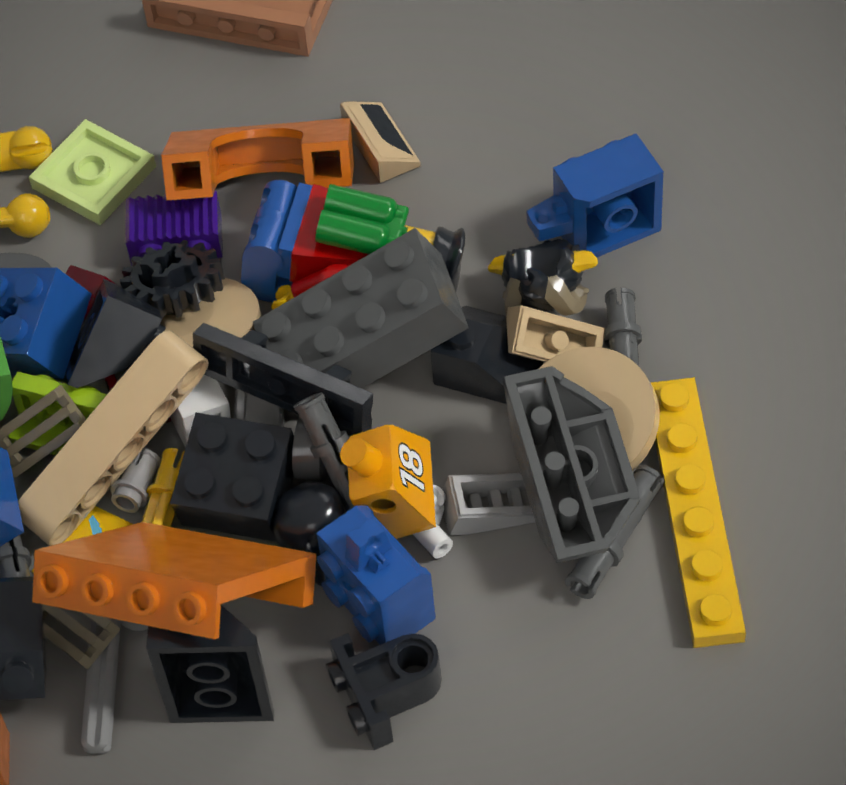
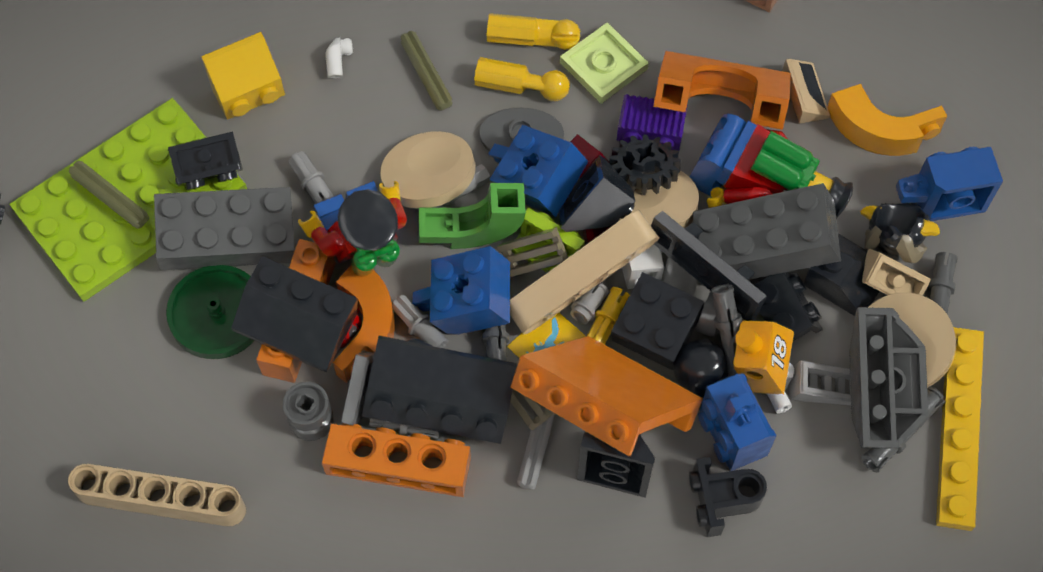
camera: 10 degrees right, 10 degrees up
(409, 403) = (788, 305): none -> black bracket
(491, 162) = (880, 132): none -> light orange arch

